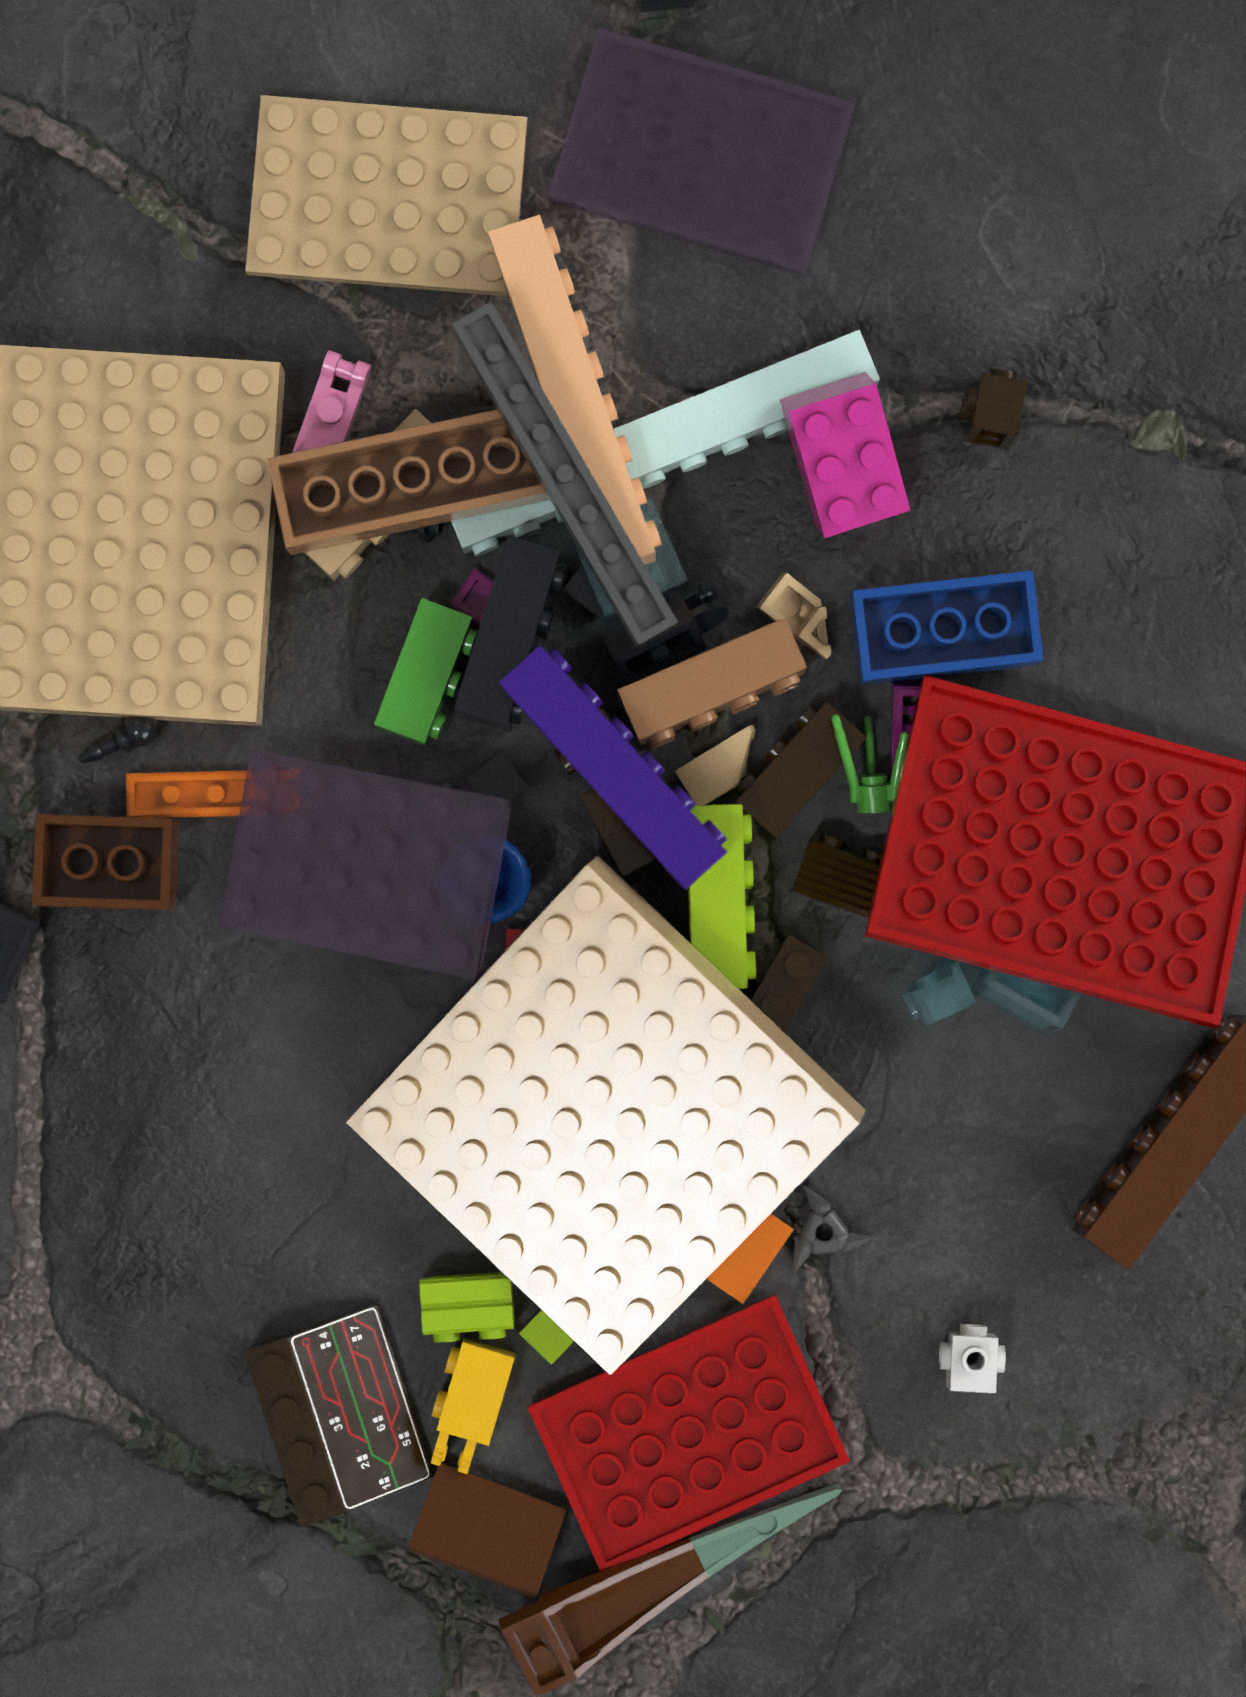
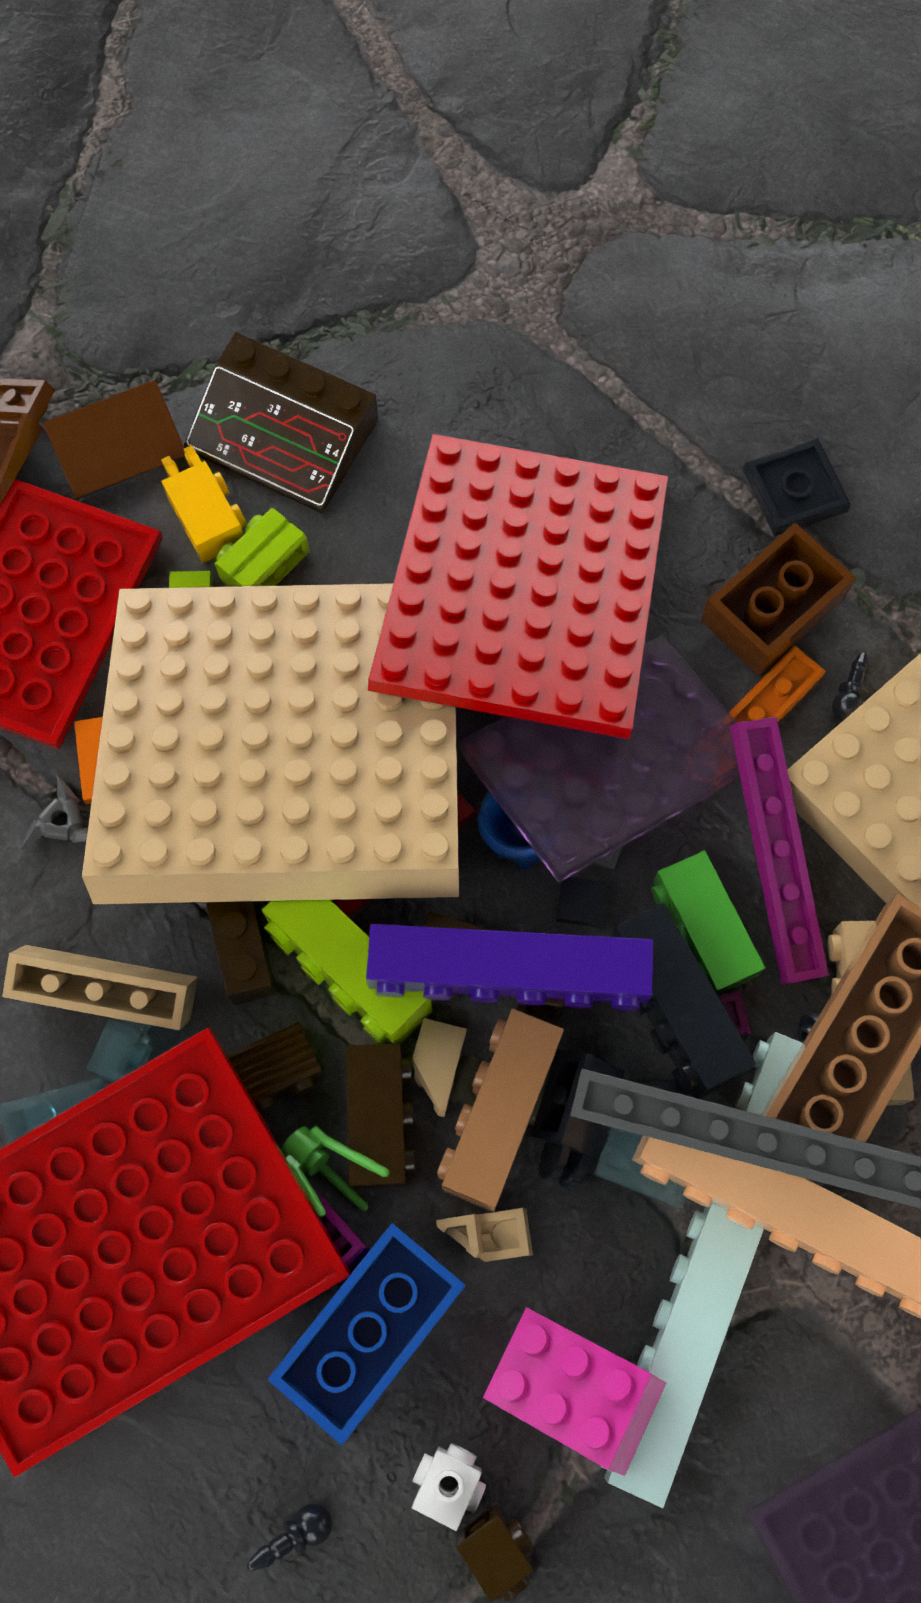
camera: 140 degrees right, 15 degrees down
(291, 1065) = (523, 587): none -> plate
(318, 672) = (779, 850): none -> magenta plate
(911, 1058) = (100, 987): none -> tan brick
(996, 469) = (444, 1504): none -> white brick
(1100, 547) = (310, 1527): none -> black bar

